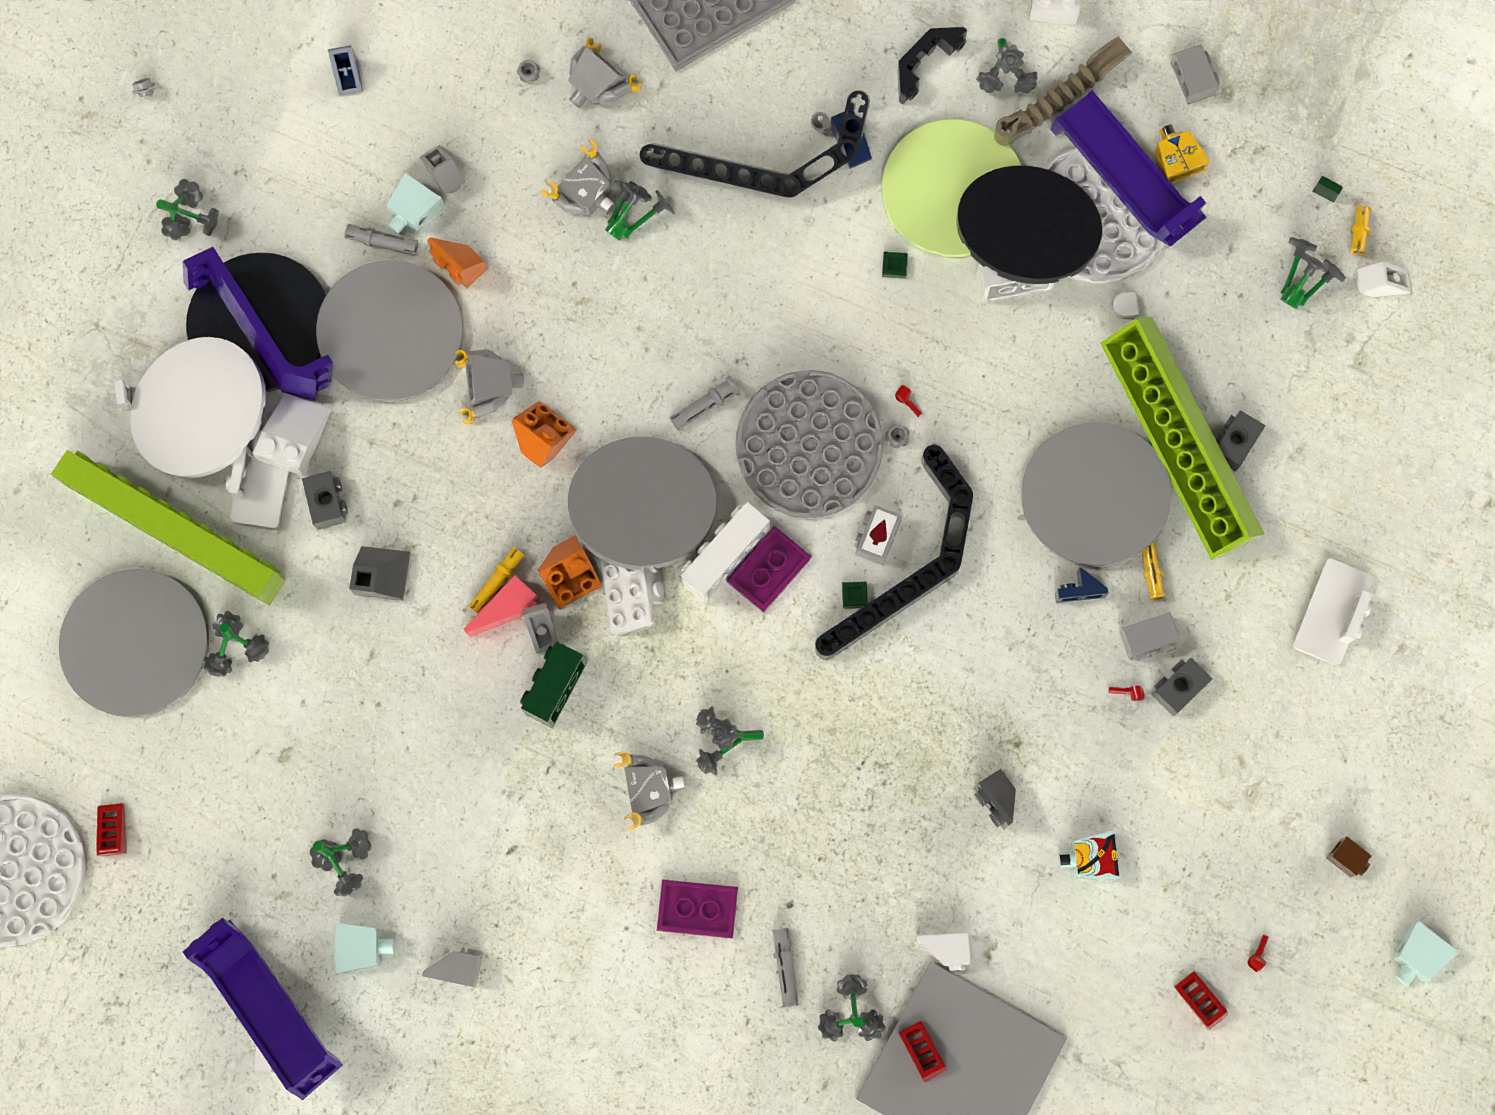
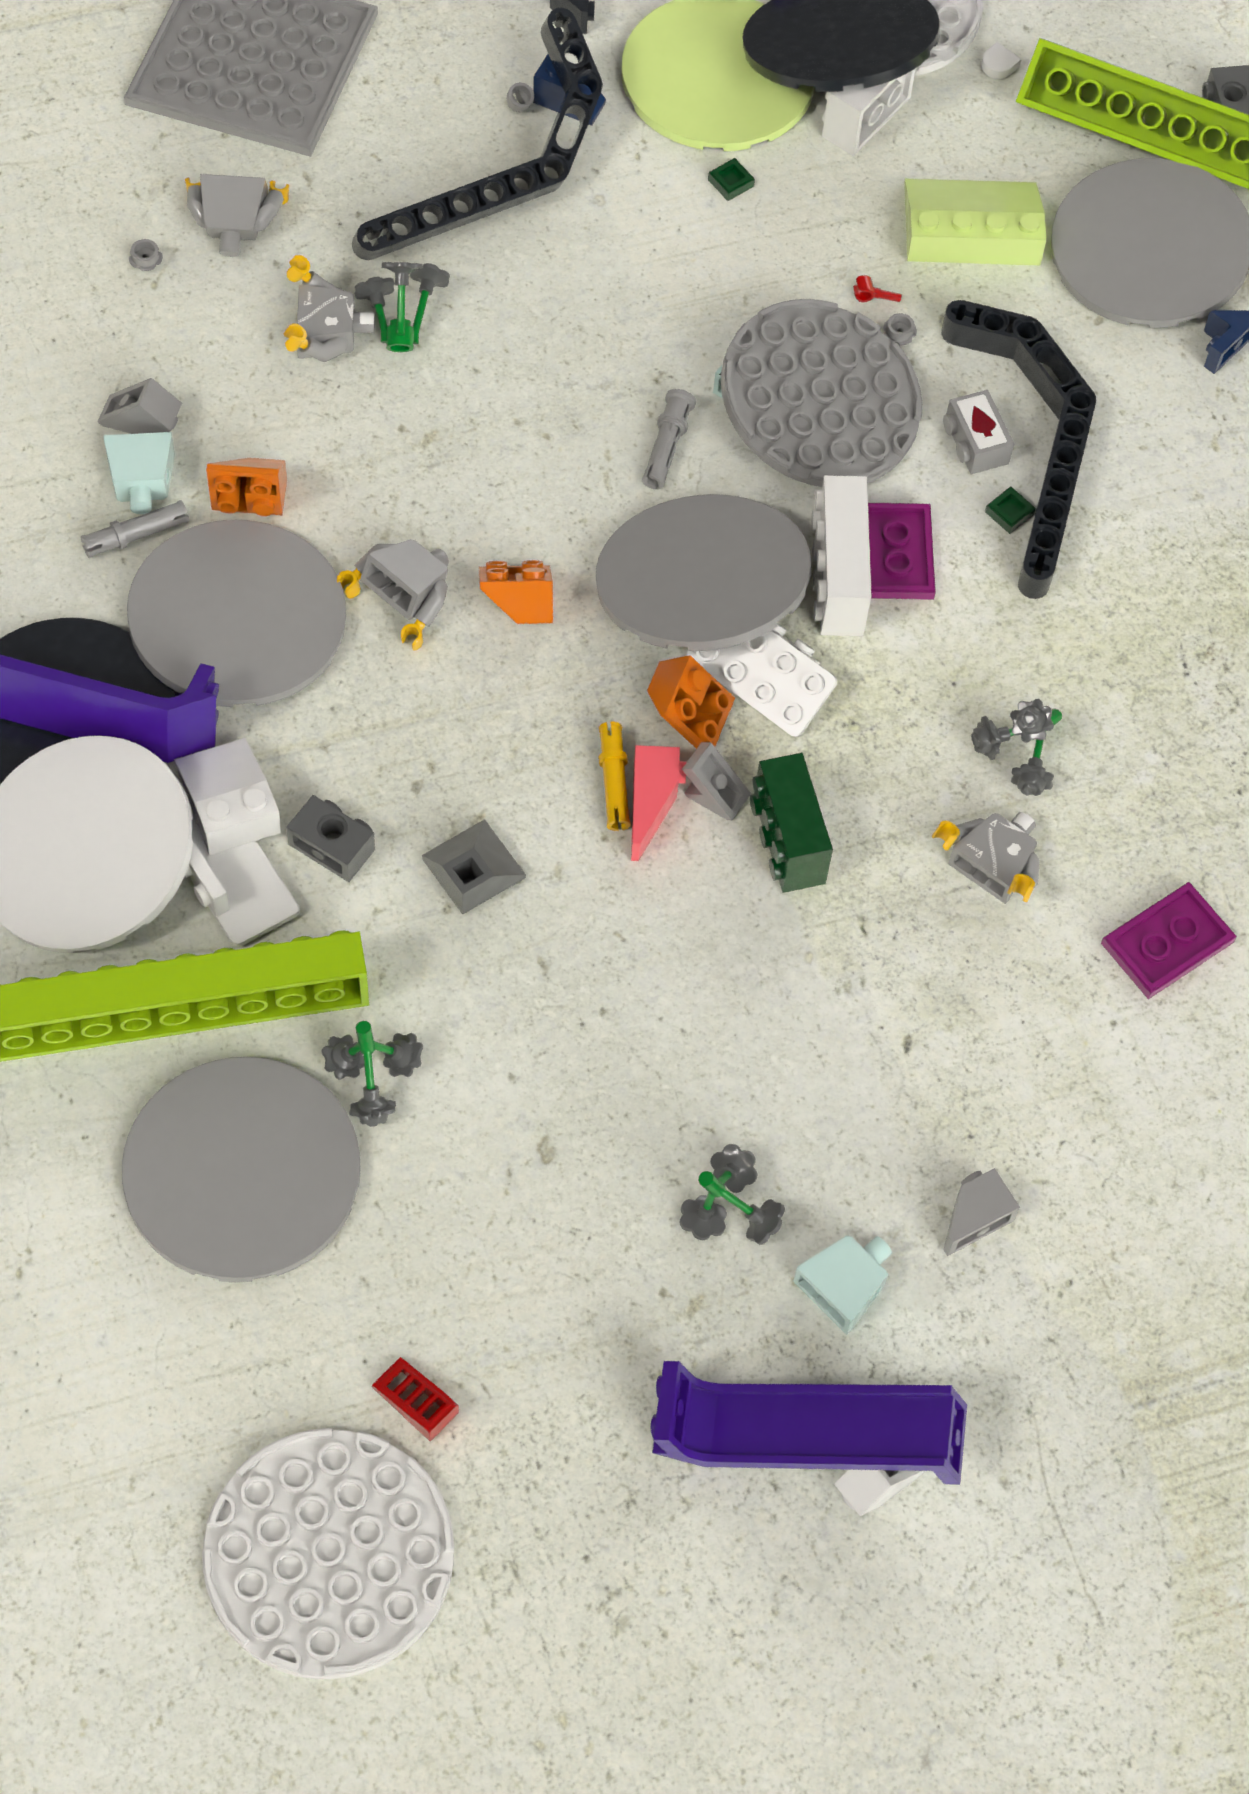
camera: 50 degrees left, 15 degrees down
(1008, 397) = (974, 222): none -> yellowish green slope

